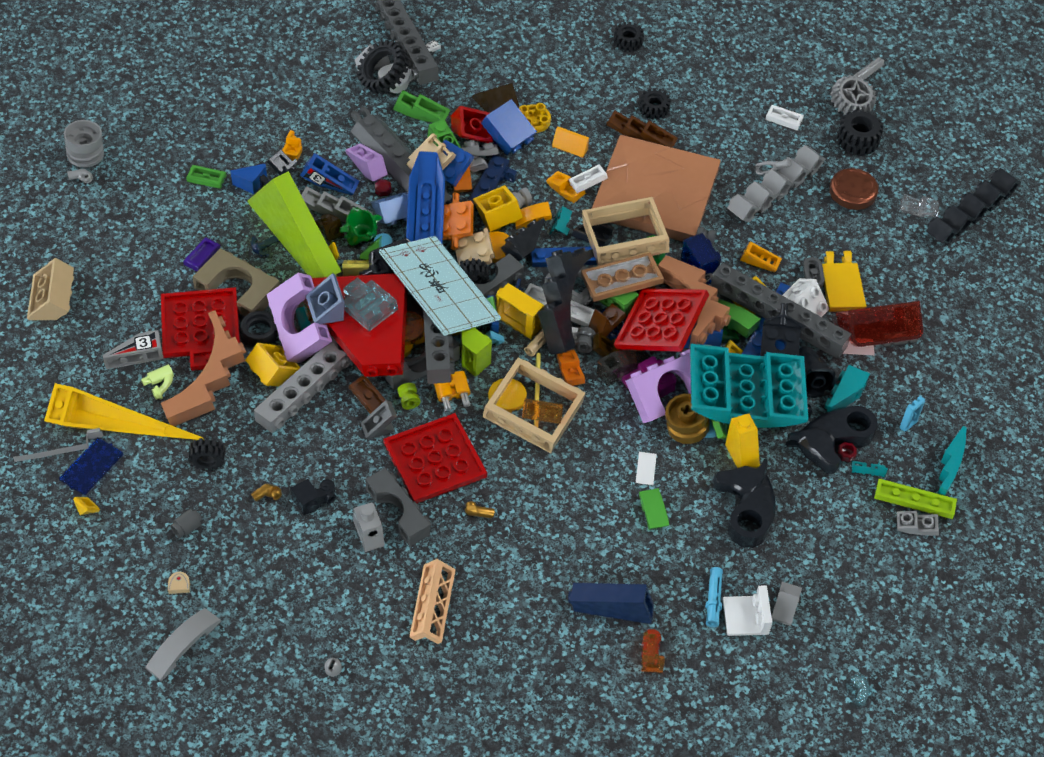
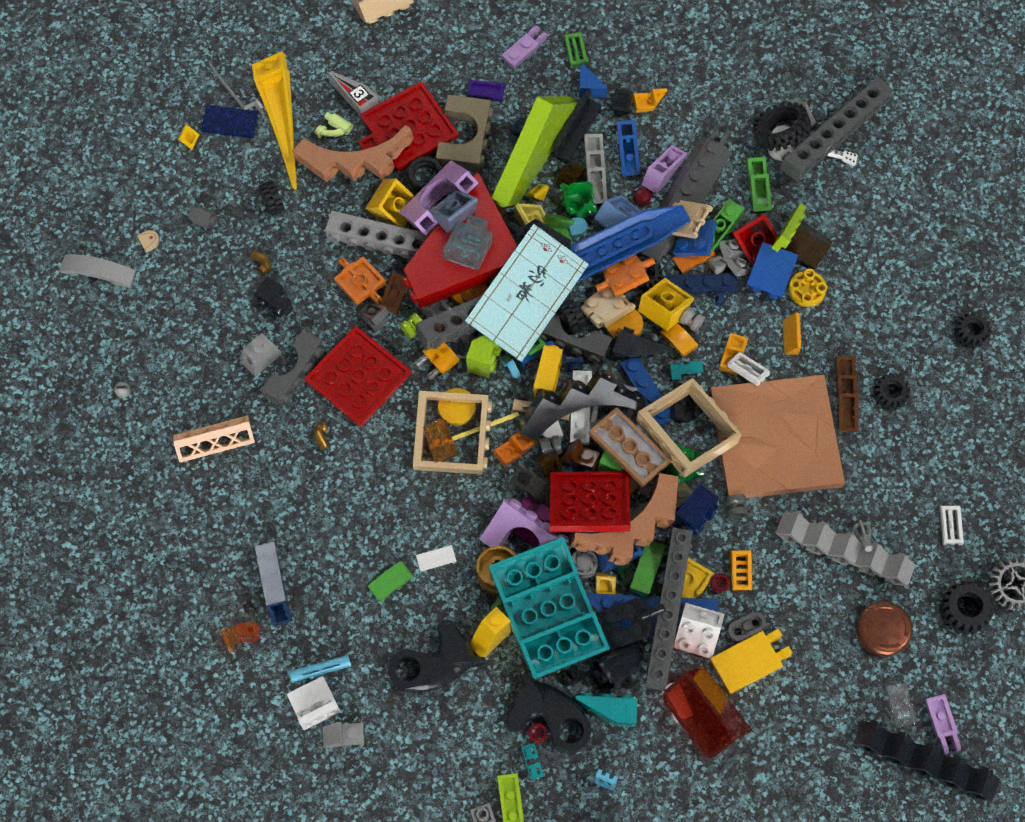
camera: 70 degrees right, 15 degrees up
(178, 211) = (524, 47): none -> lavender hinge
(337, 419) = (360, 280): none -> orange plate
(480, 97) = (789, 228): none -> lime plate
(767, 275) = (719, 583): none -> dark red tile
(944, 186) = (942, 722): none -> lavender hinge

